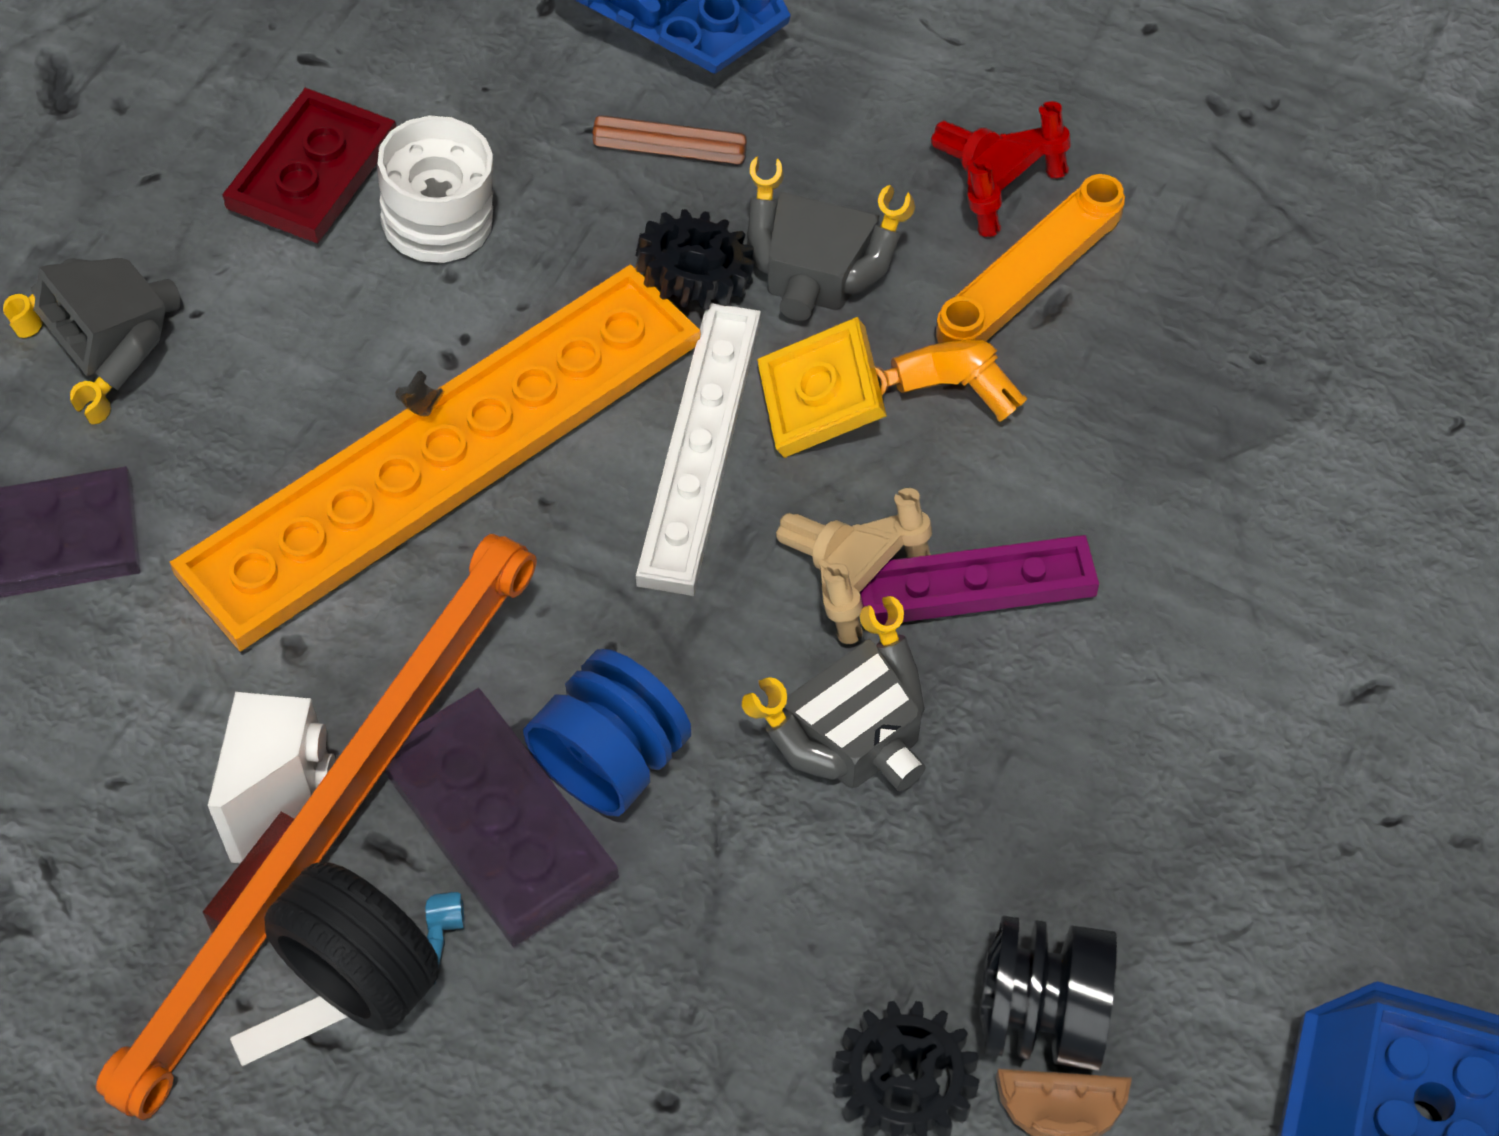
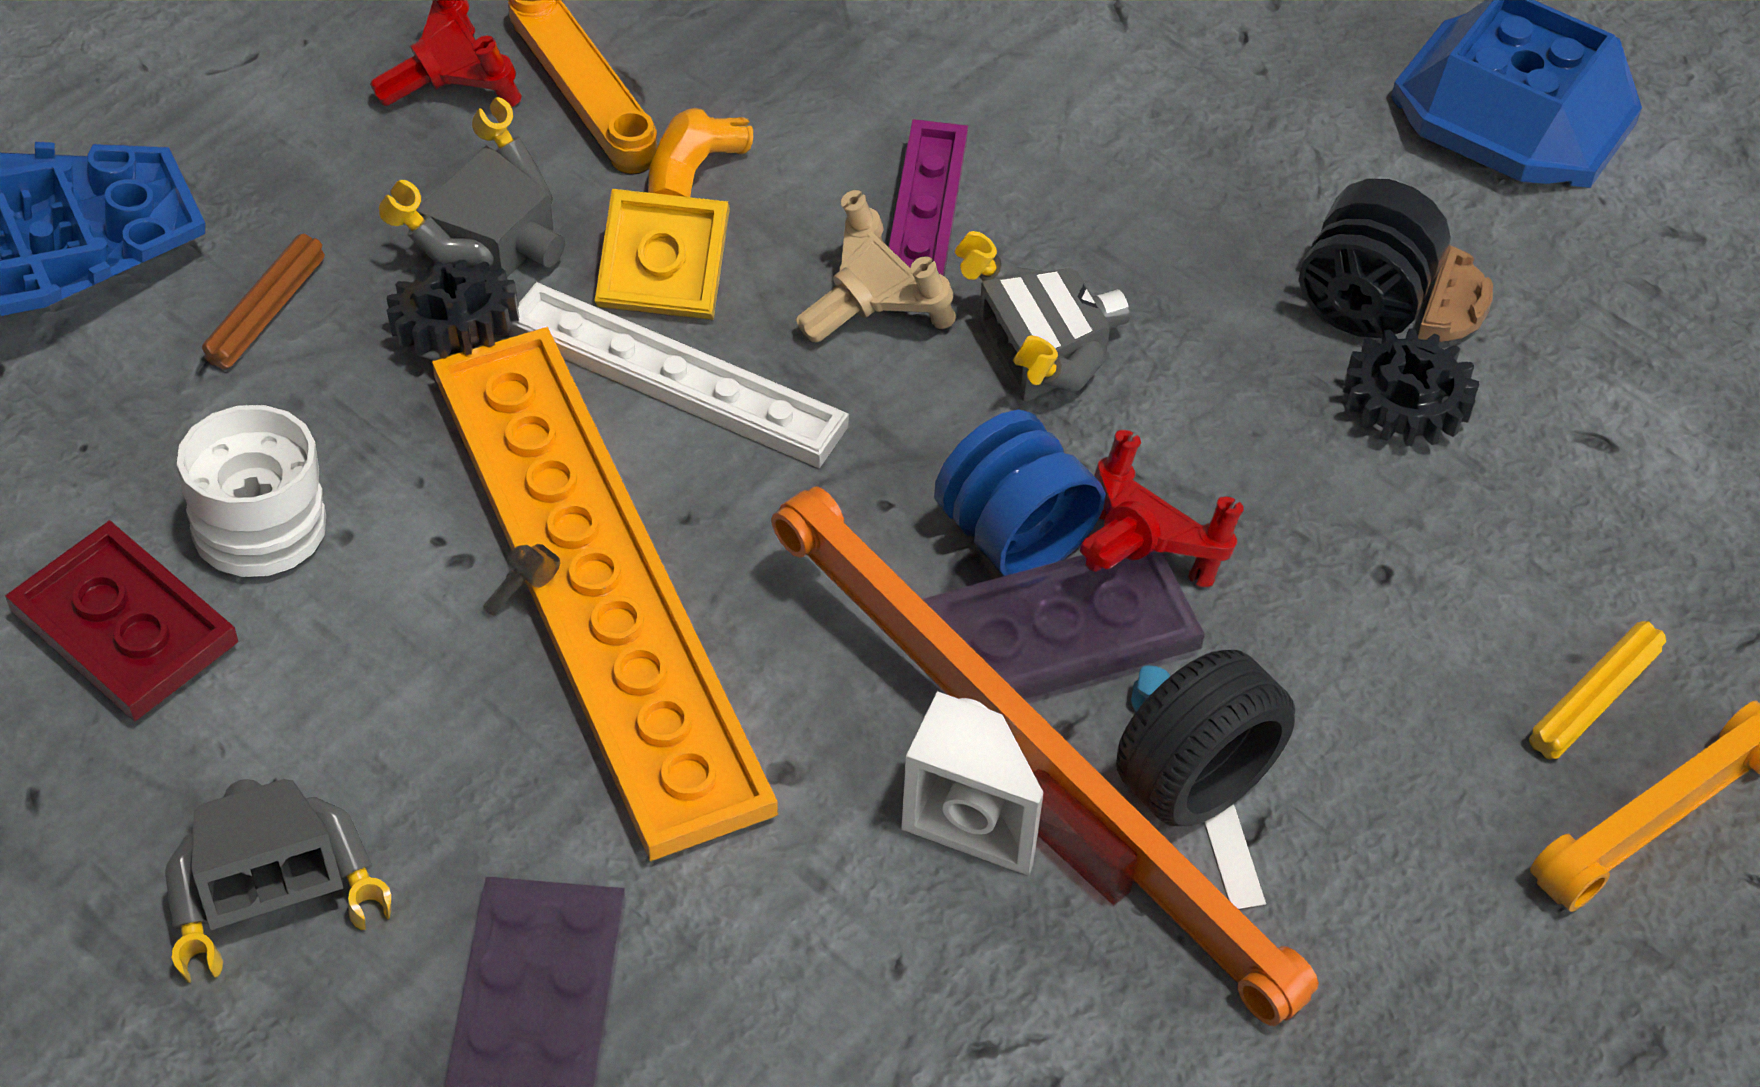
camera: 75 degrees left, 5 degrees down
(614, 849) = (1143, 522): none -> red axle

